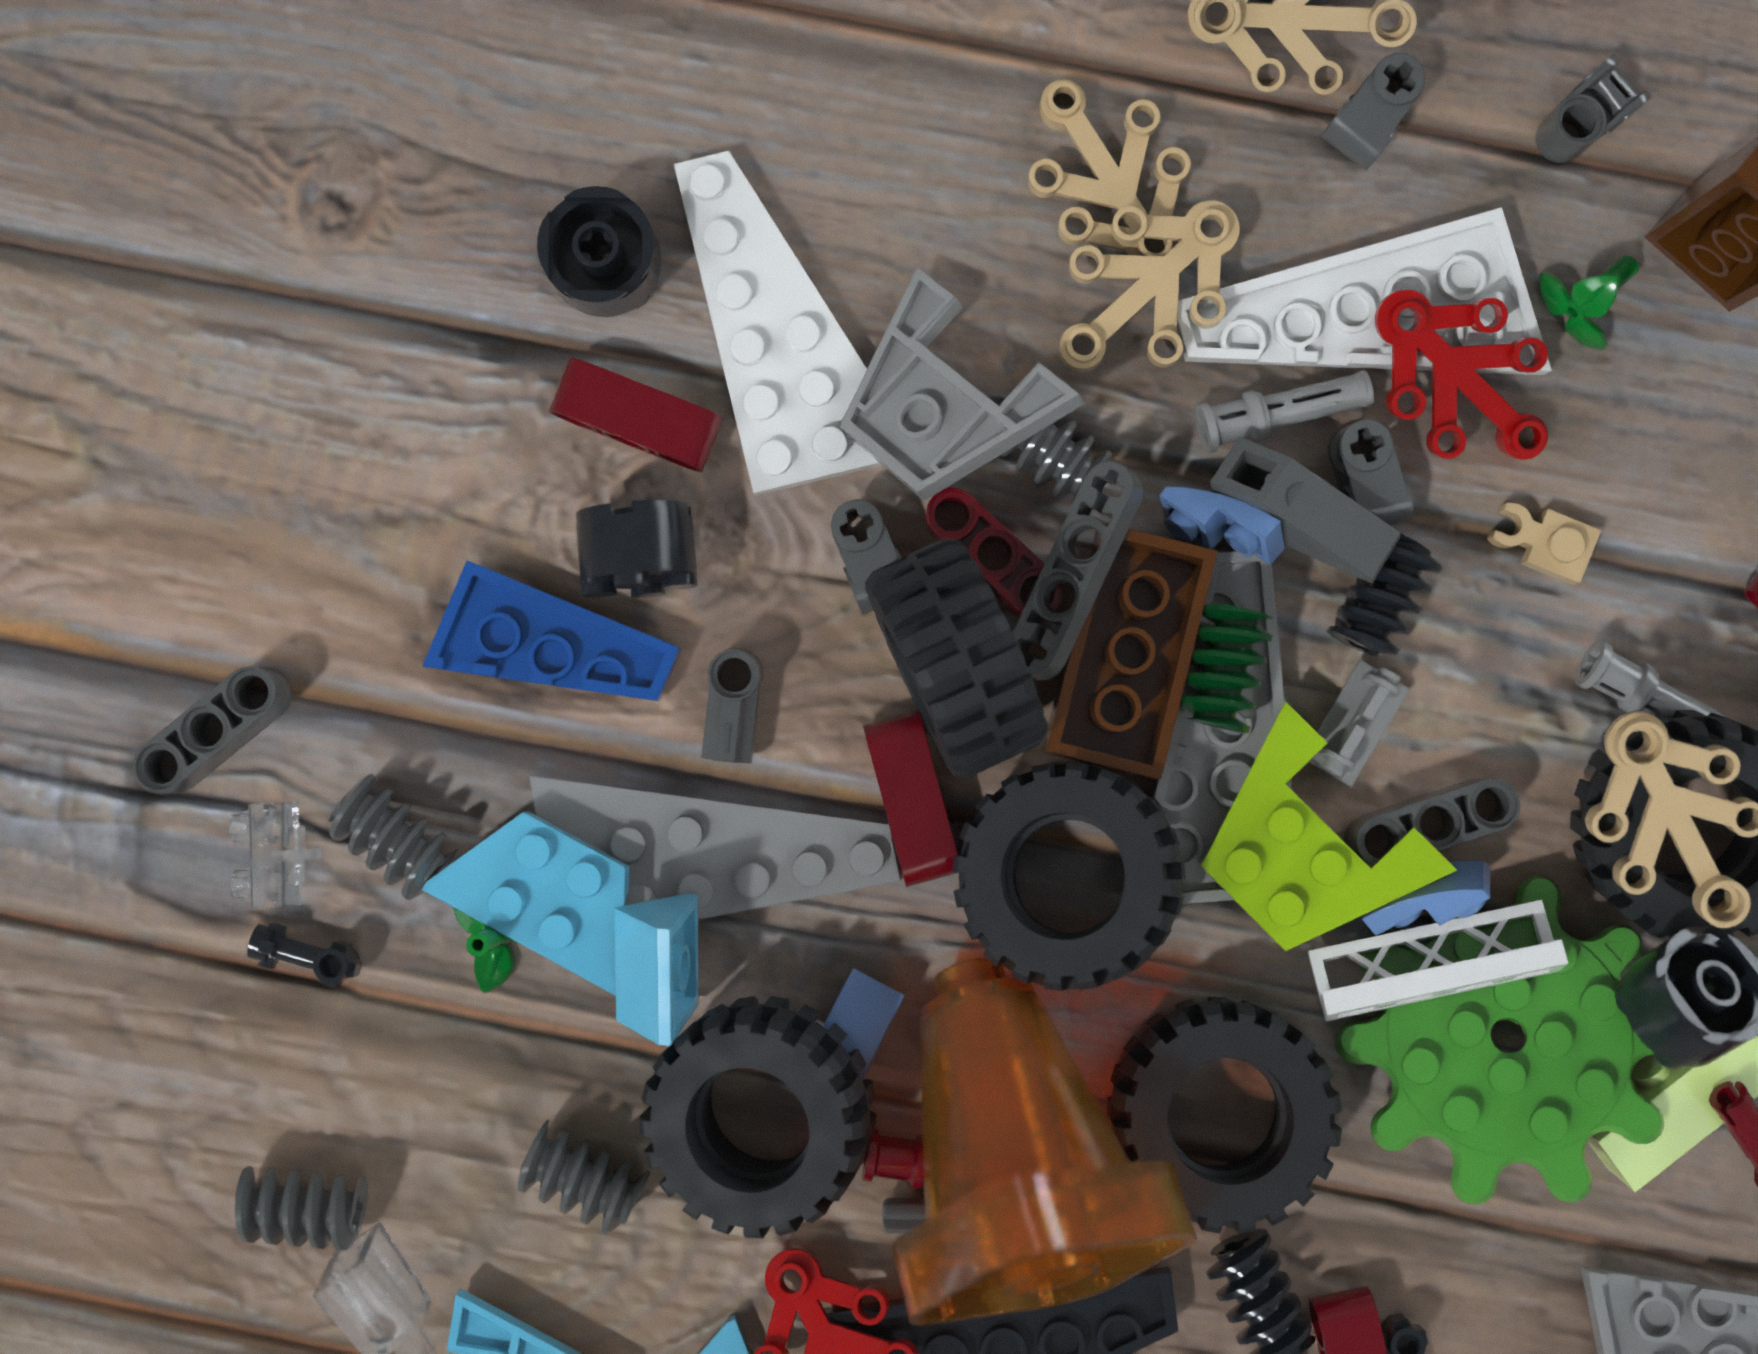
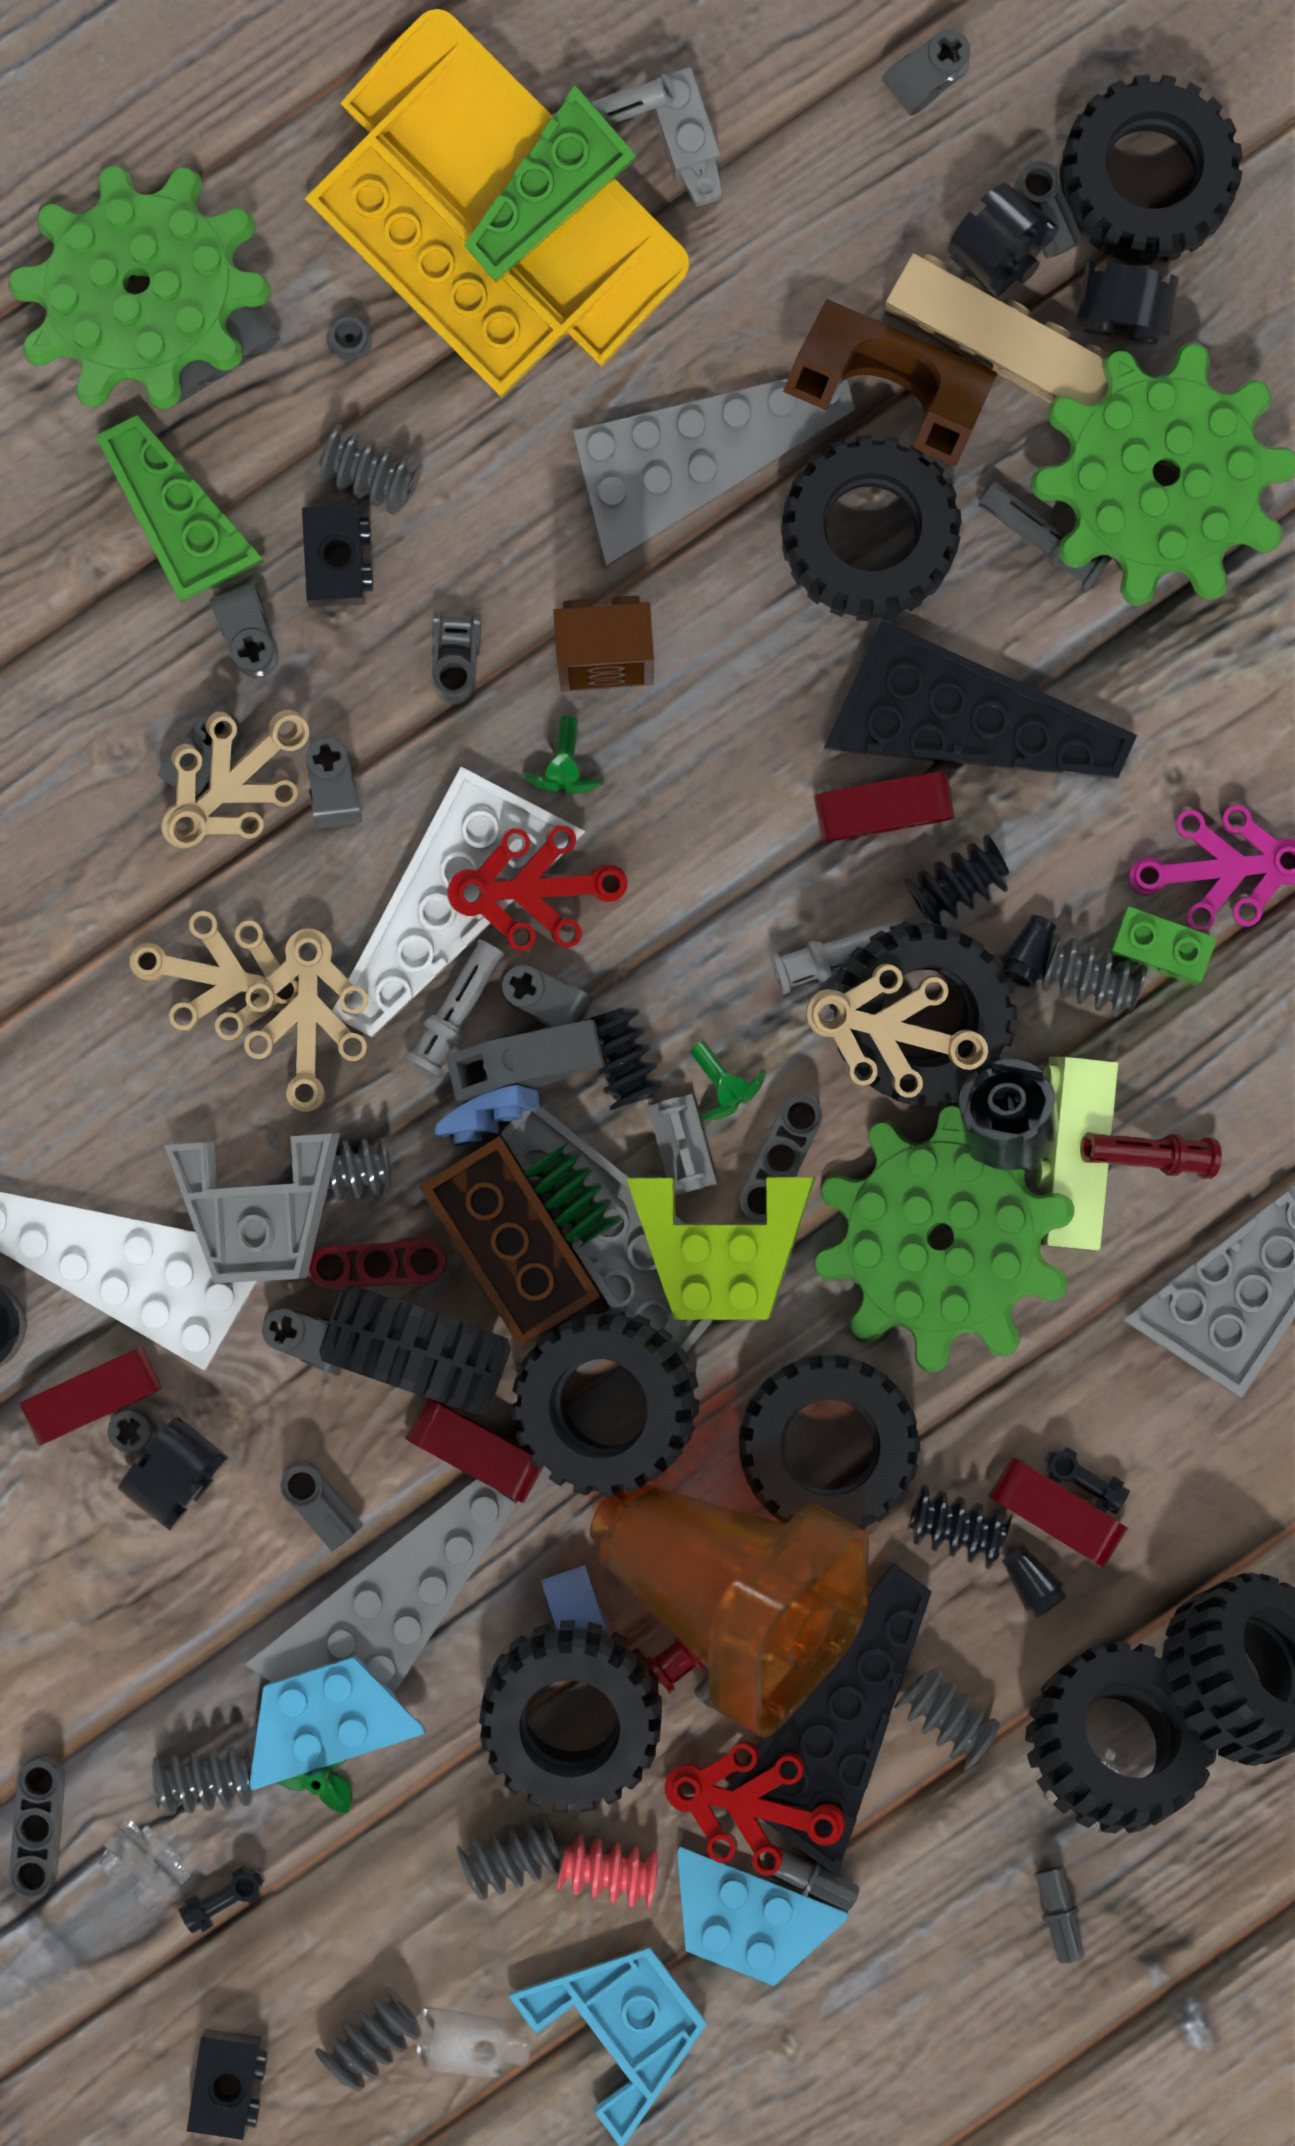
camera: 55 degrees left, 0 degrees up
(108, 1126) = (211, 2109): none -> black brick
(533, 637) = (165, 1582): blue wing -> none
(626, 465) = (143, 1431): none -> dark grey bush
(654, 1279) = (609, 1870): none -> coral piece
(657, 966) = (427, 1692): medium azure slope -> none
(1085, 574) = (424, 1233): dark grey beam -> none
(1444, 899) = (828, 1190): medium blue slope -> none
(1444, 979) = (866, 1244): white fence -> none
(1455, 712) = (730, 1088): none -> green plant
(1552, 544) = (690, 924): tan plate -> none

